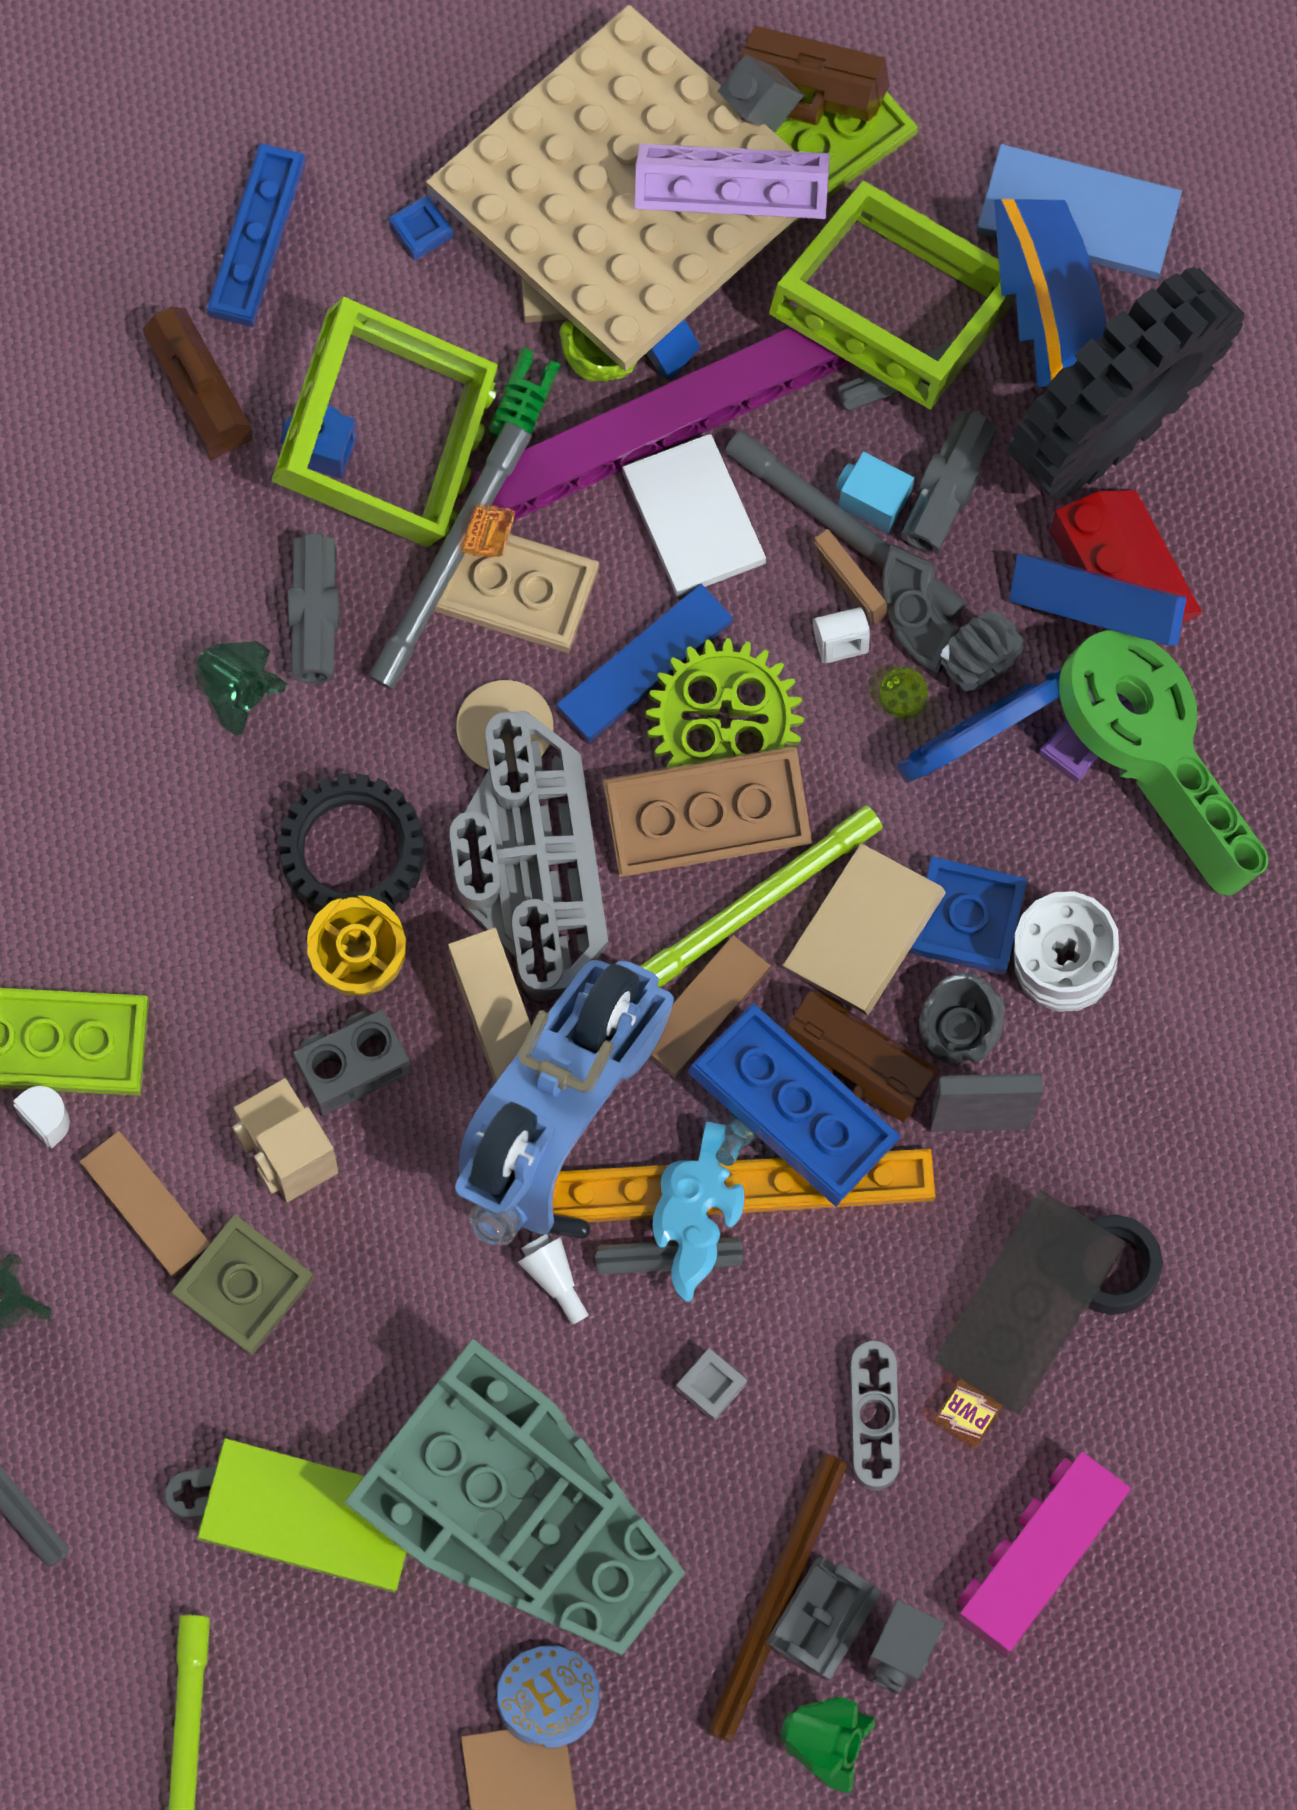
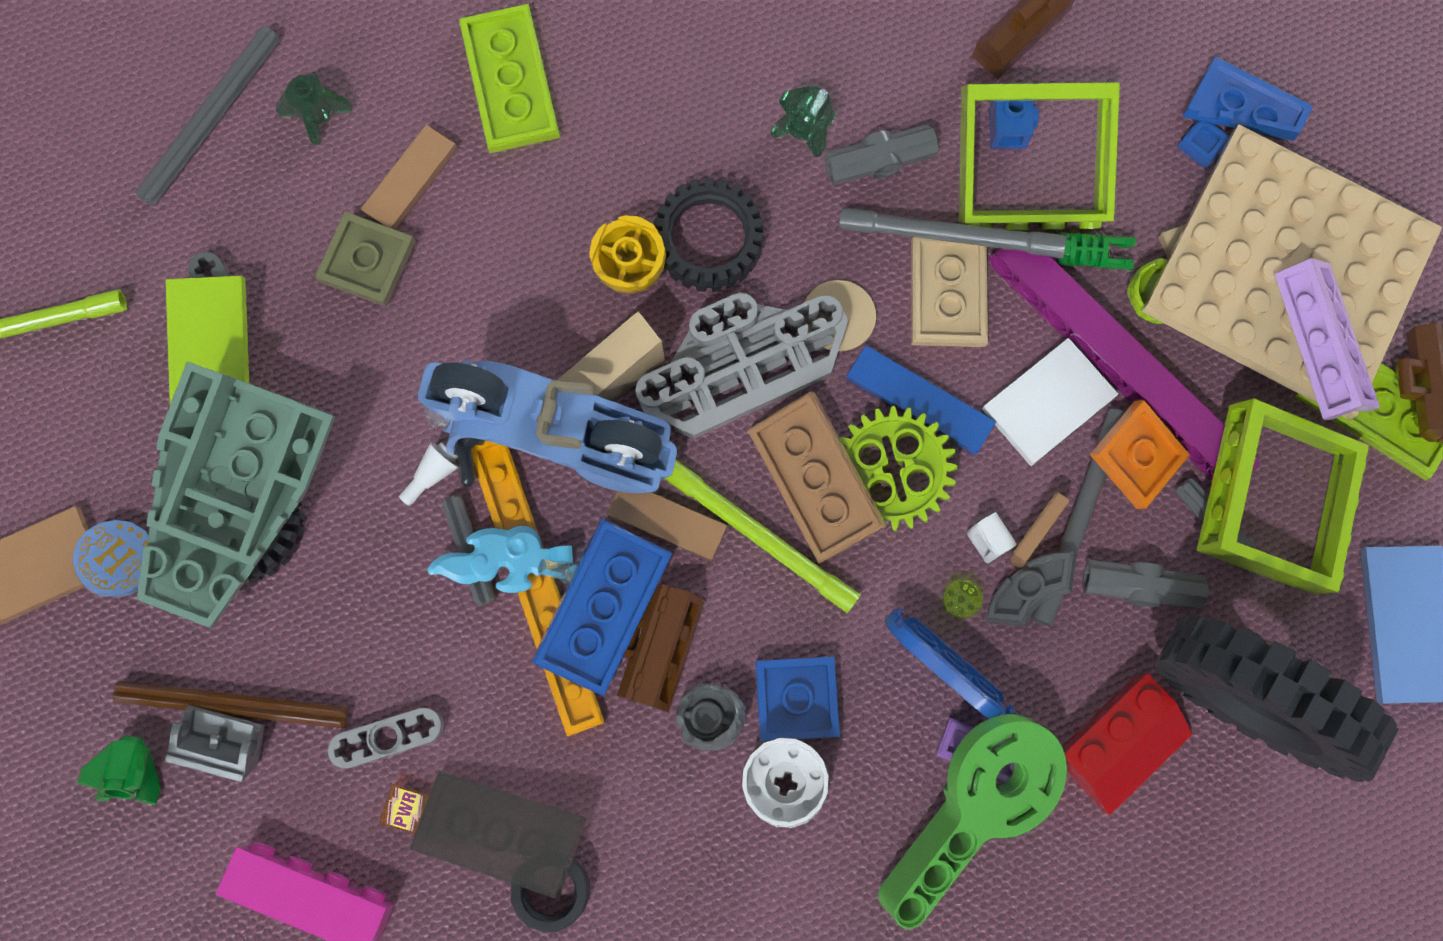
camera: 75 degrees right, 5 degrees up
(43, 1113) = (450, 90): white brick -> none
(256, 235) = (1154, 32): blue tile -> none
(287, 1139) = (474, 254): tan brick -> none
(359, 1073) = (542, 286): dark grey brick -> none
(389, 162) = (1236, 97): none -> blue wing
(488, 531) = (978, 251): clear orange tile -> none
(674, 350) = (1175, 347): blue tile -> none
(711, 1384) = (376, 609): light grey plate -> none
(760, 93) = (1409, 342): dark grey brick -> none
(794, 433) = (1140, 454): none -> orange plate
(864, 929) = (760, 622): tan tile -> none
(874, 491) = (1115, 529): medium azure brick -> none
(903, 1648) = (198, 811): dark grey brick -> none
(982, 651) = (1012, 648): dark grey gear -> none
(985, 1102) = (636, 752): dark grey tile -> none
(1052, 280) = (1344, 612): blue slope -> none
(1098, 599) = (1083, 730): blue tile -> none

